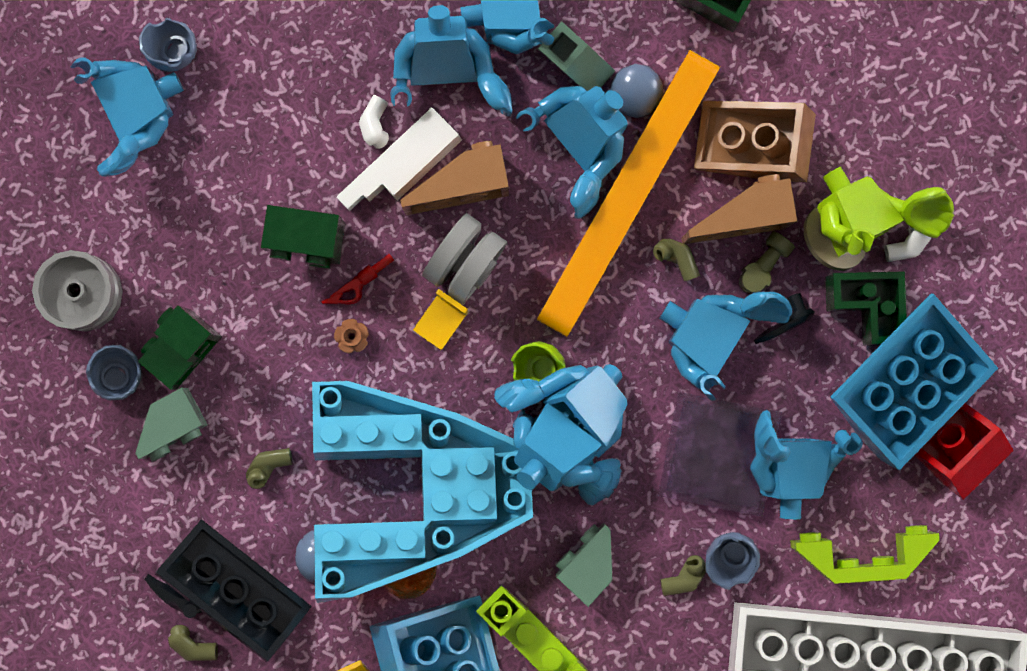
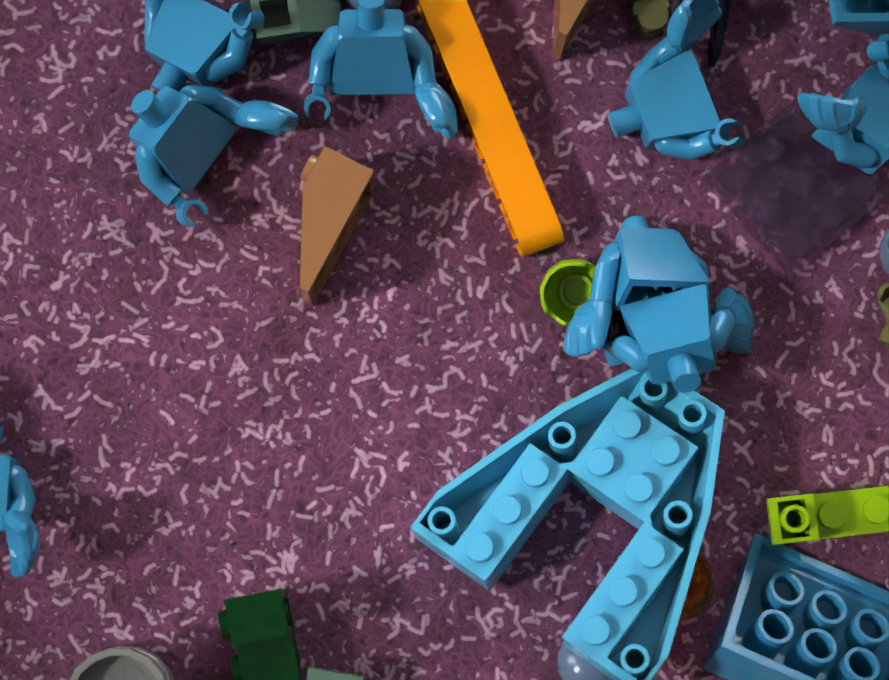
camera: 55 degrees left, 5 degrees down
(264, 464) = (452, 648): olive arm -> none
(304, 234) = (252, 416): dark green brick -> none
(358, 343) = (397, 466): nougat plate -> none
(363, 278) = (342, 397): red hand -> none
(371, 125) = (193, 267): white arm -> none
(404, 161) = (258, 263): white piece -> none
(441, 320) = (447, 350): yellow bracket -> none
(469, 262) = (414, 275): light grey wheel -> none
(590, 567) = (813, 397): sand green slope -> none
(677, 253) = (566, 70): olive arm -> none

